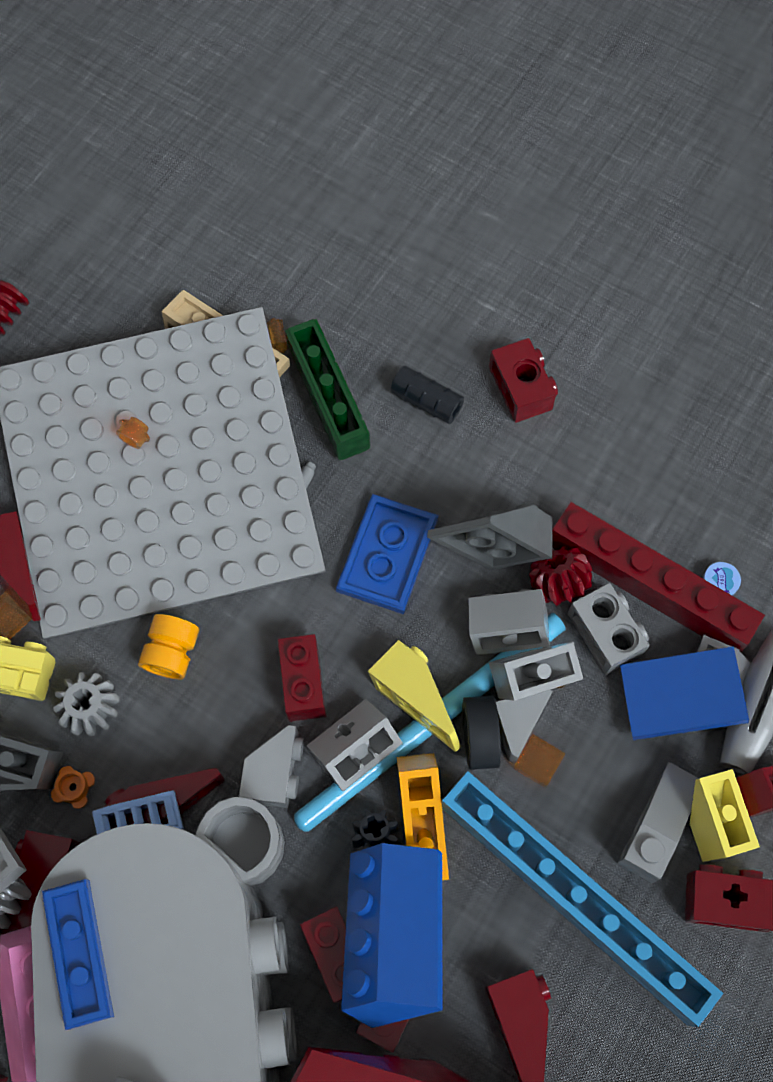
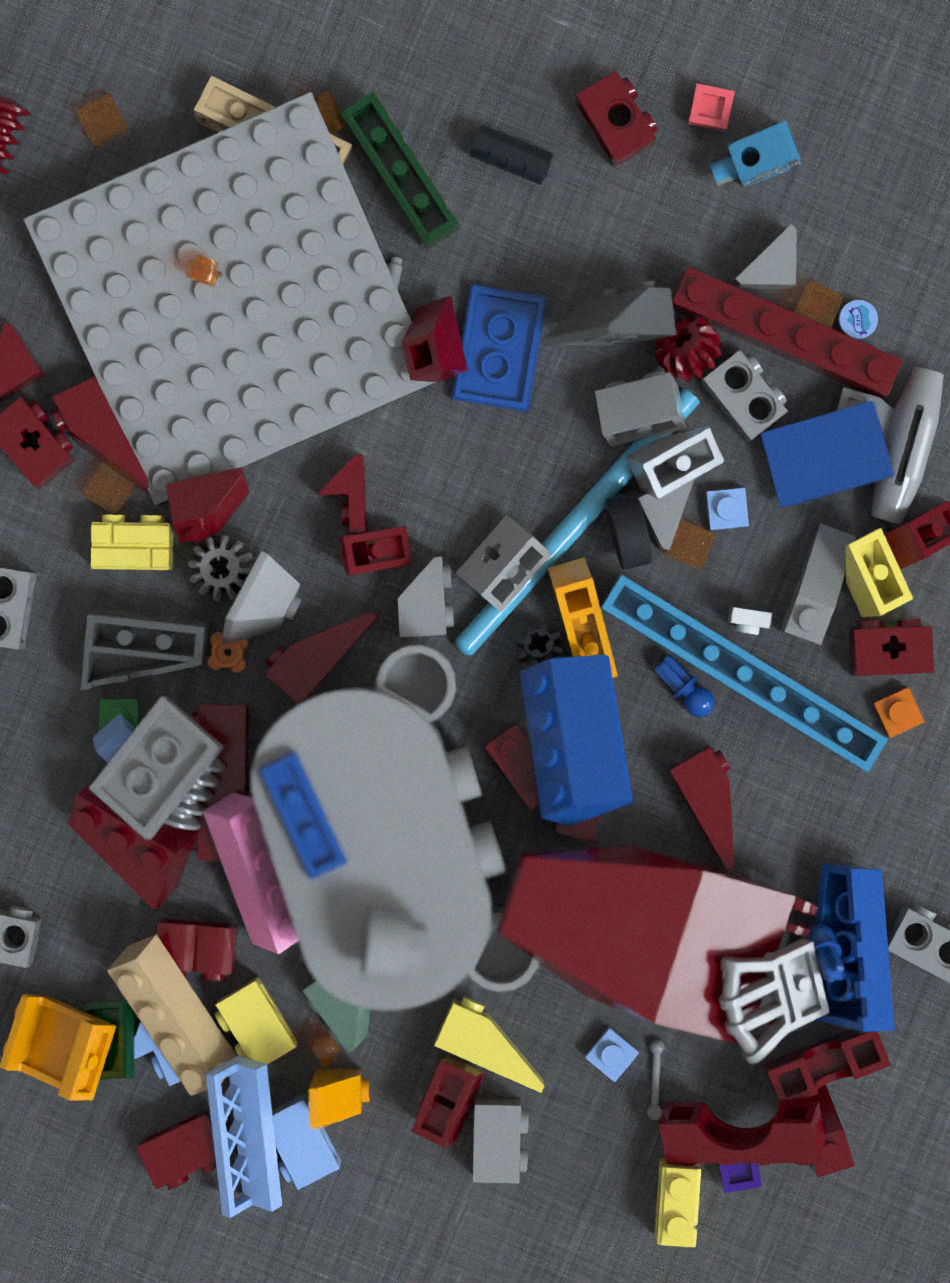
camera: 10 degrees left, 20 degrees up
(87, 319) = (102, 120): none -> clear orange tile
(87, 640) = (205, 503): none -> dark red slope
(110, 738) = (262, 602): none -> light grey slope
(118, 811) = (279, 693): light blue slope -> none
(168, 648) = (292, 494): light orange wheel -> none
(226, 648) = (351, 483): none -> dark red slope
(233, 711) = (375, 551): none -> dark red slope
(301, 678) = (436, 503): dark red brick -> none
(328, 536) = (434, 343): none -> dark red slope
(407, 682) = (549, 492): light yellow slope -> none
(526, 918) = (698, 700): none -> blue axle
(579, 732) = (727, 509): none -> light blue plate
(588, 843) = (749, 620): none -> white plate
(606, 384) = (711, 107): none -> coral plate
(648, 424) = (776, 155): none -> dark azure torso
(649, 519) = (774, 266): none -> light grey slope
(689, 556) = (819, 304): none -> clear orange plate
(731, 969) = (898, 712): none -> orange plate

